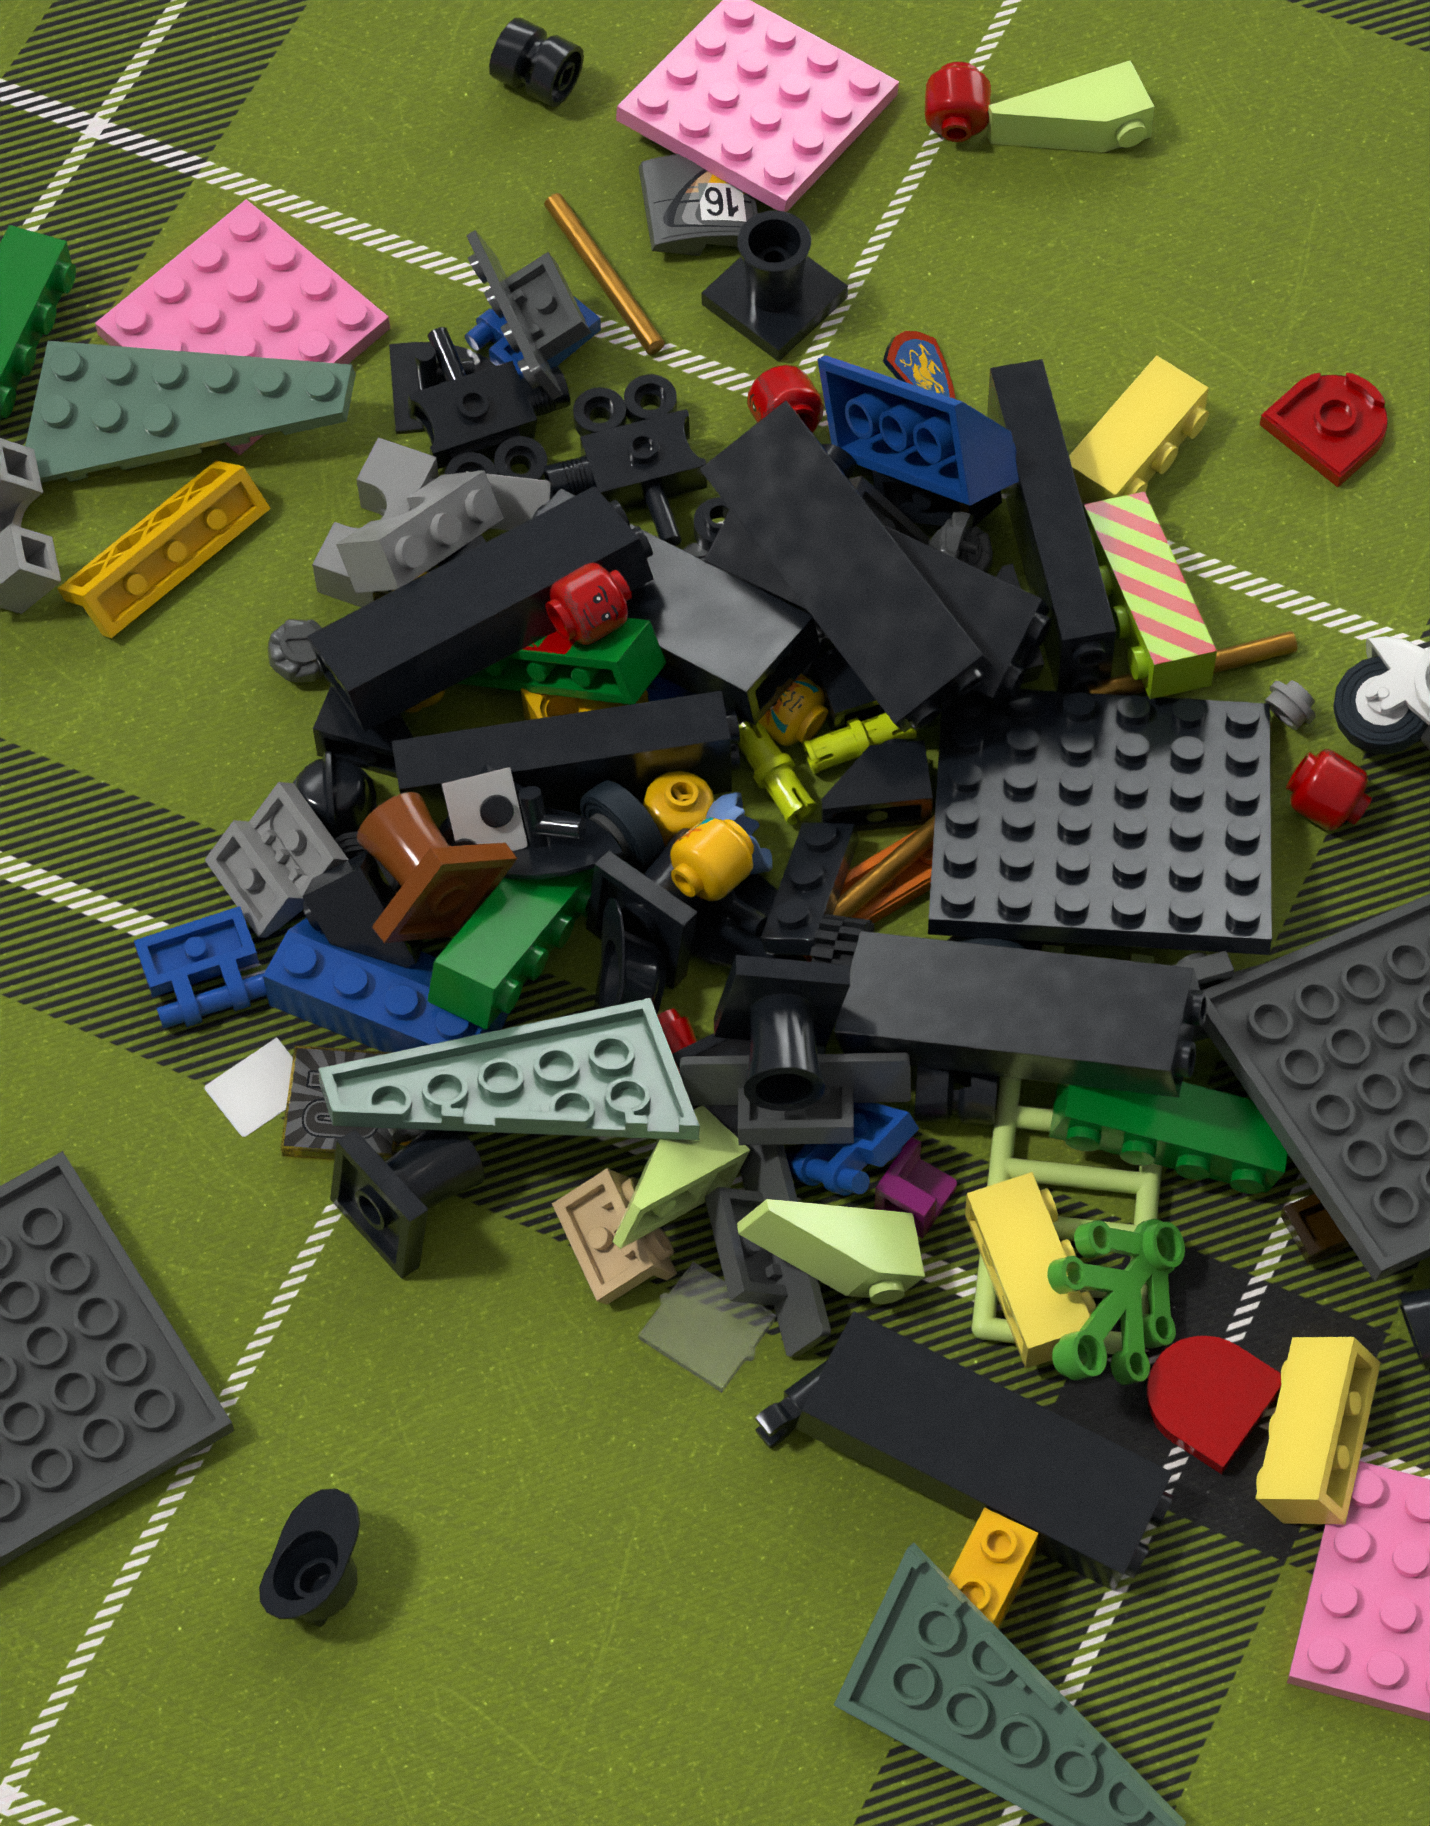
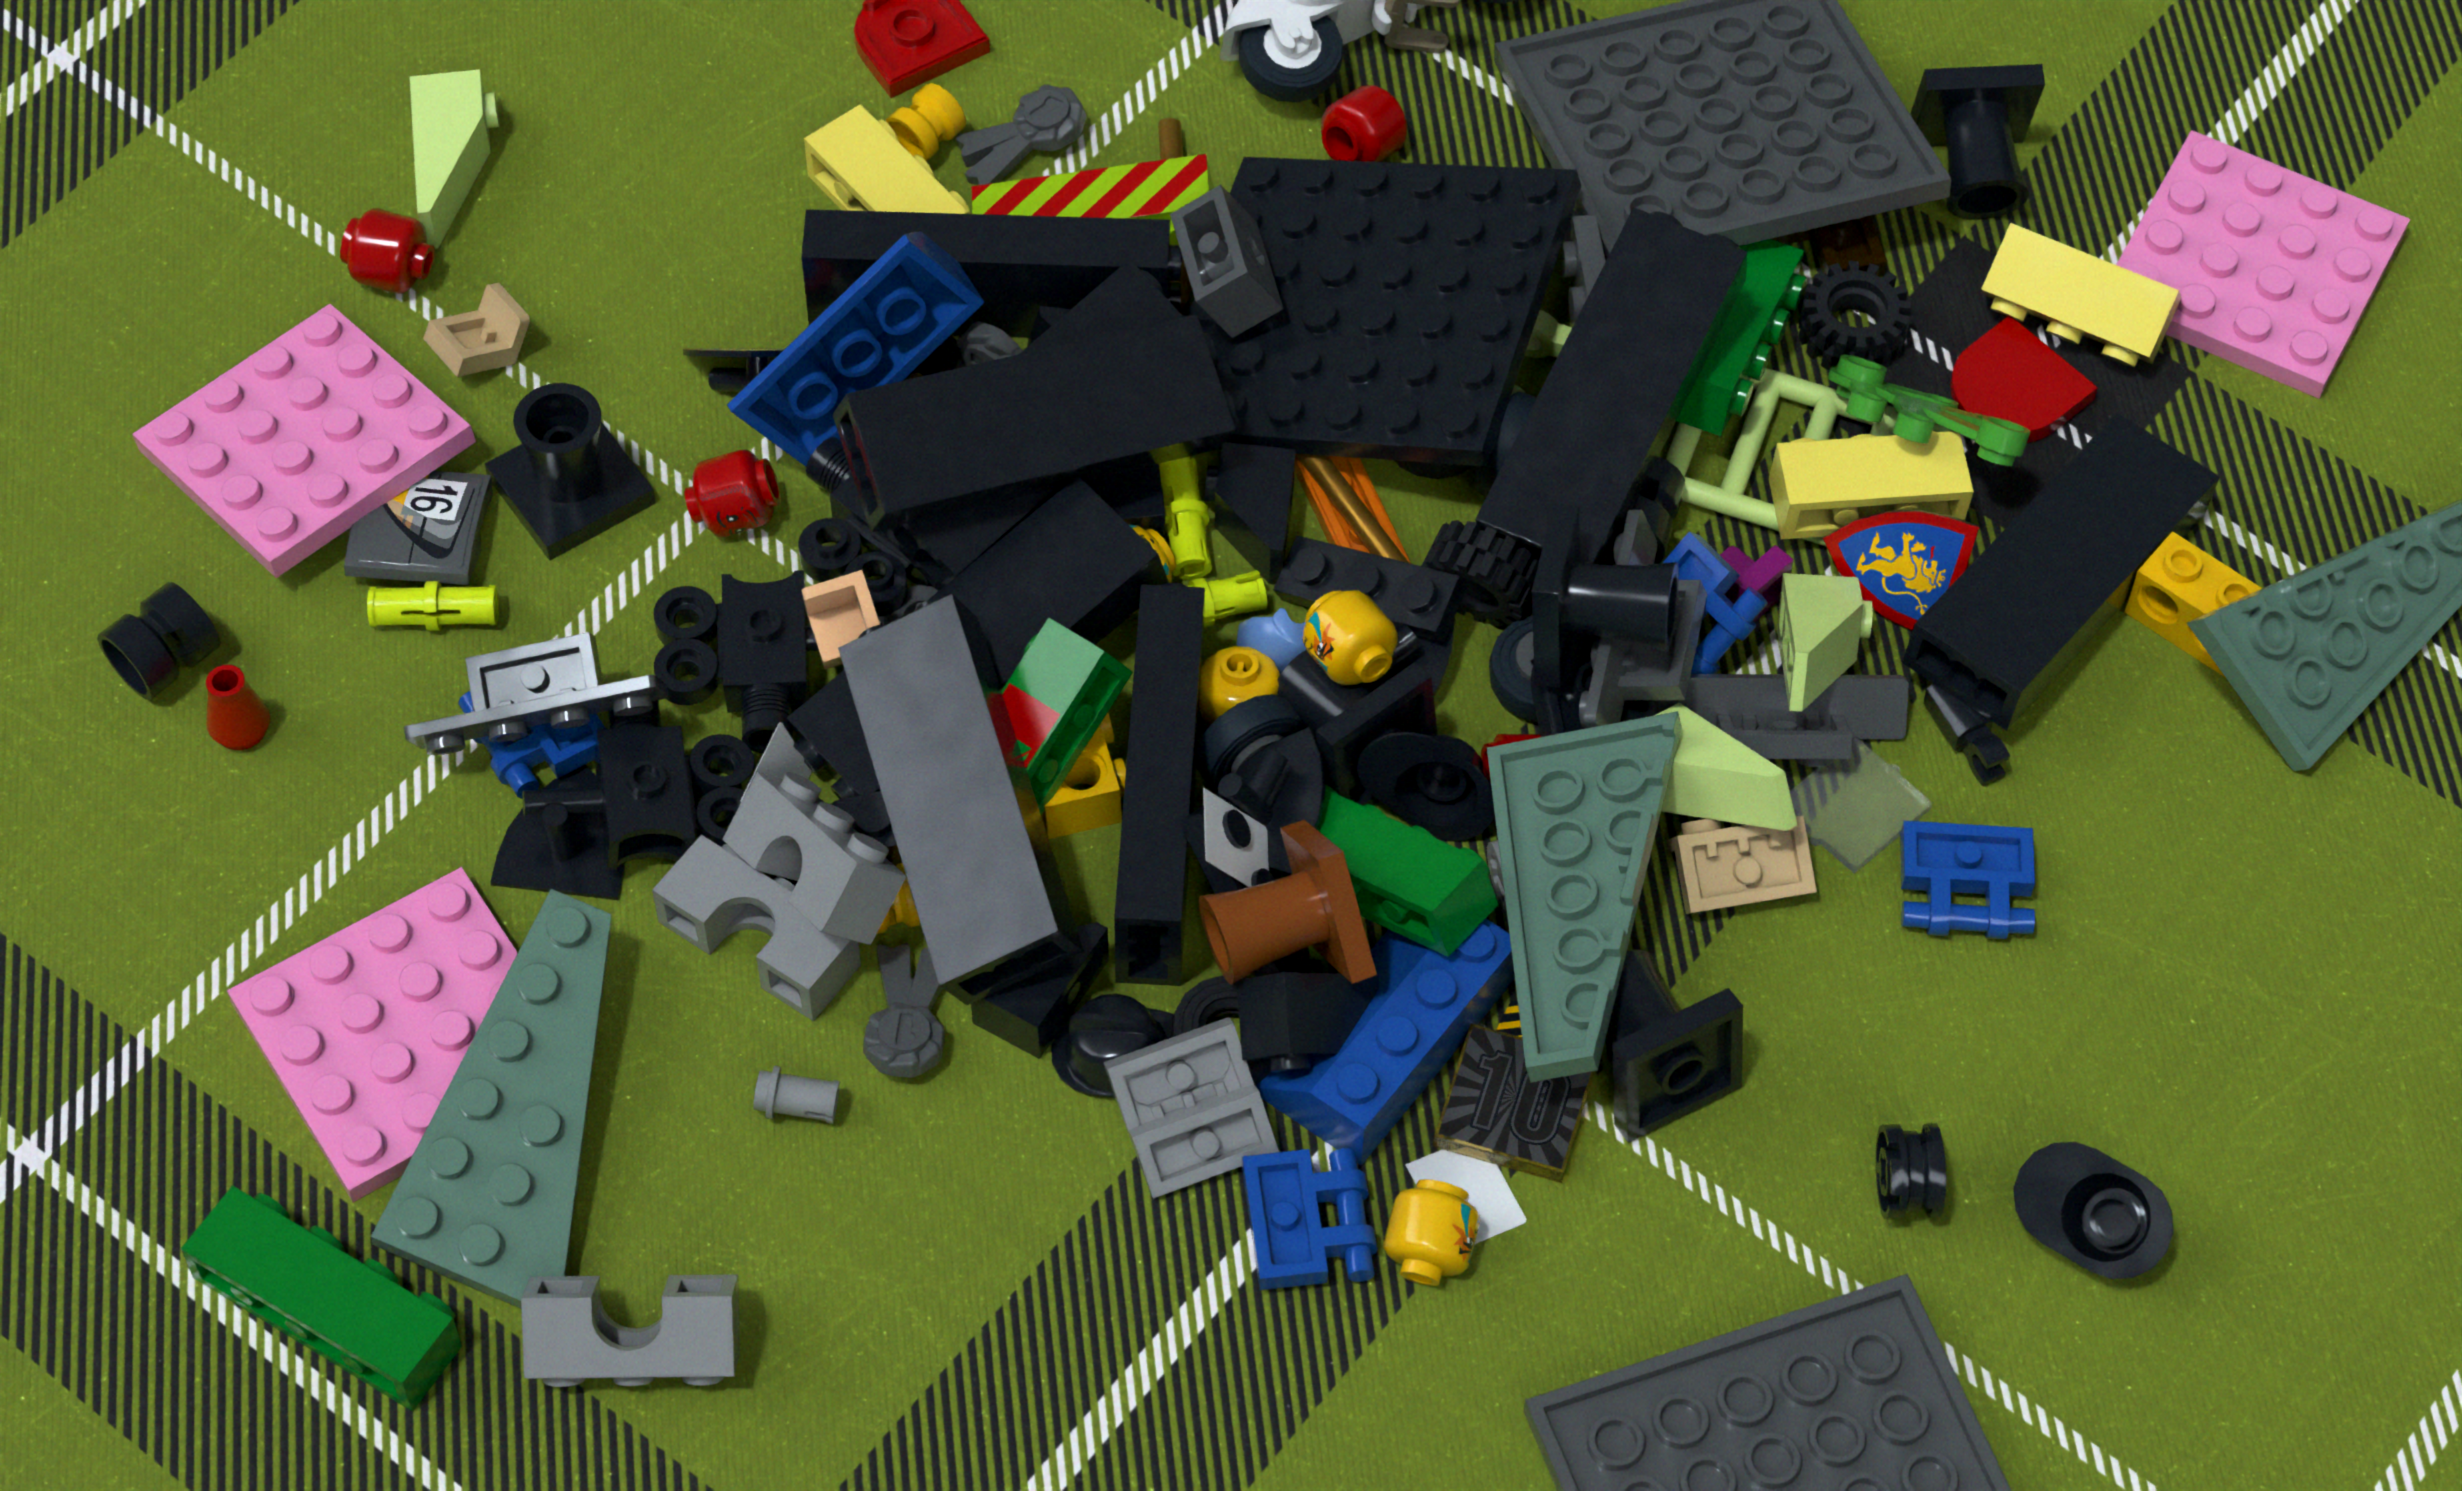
camera: 80 degrees left, 5 degrees down
(166, 547) = (721, 1152): yellow fence -> none
(202, 1057) = (1431, 1231): none -> yellow head
(235, 579) = (795, 1096): none -> light grey pin
(326, 1409) = (1910, 1171): none -> black wheel
(488, 129) = (234, 709): none -> red cone
(588, 603) = (1020, 662): red head -> none
(604, 274) = (475, 642): pearl gold bar -> none
(626, 233) = (433, 605): none -> neon yellow pin
(658, 503) = (838, 613): none -> light nougat panel
(660, 1419) = (1967, 860): none -> blue plate
(892, 188) = (481, 337): none -> tan bracket
(956, 1311) = (1903, 559): none -> shield
(1097, 690) = (1226, 261): none -> dark grey brick
(1226, 451) = (929, 120): none -> yellow wheel
(1246, 1210) = (1859, 292): none -> black tyre
(1255, 540) = (1042, 121): none -> dark grey piece
(1291, 704) = (1251, 136): light grey plate -> none

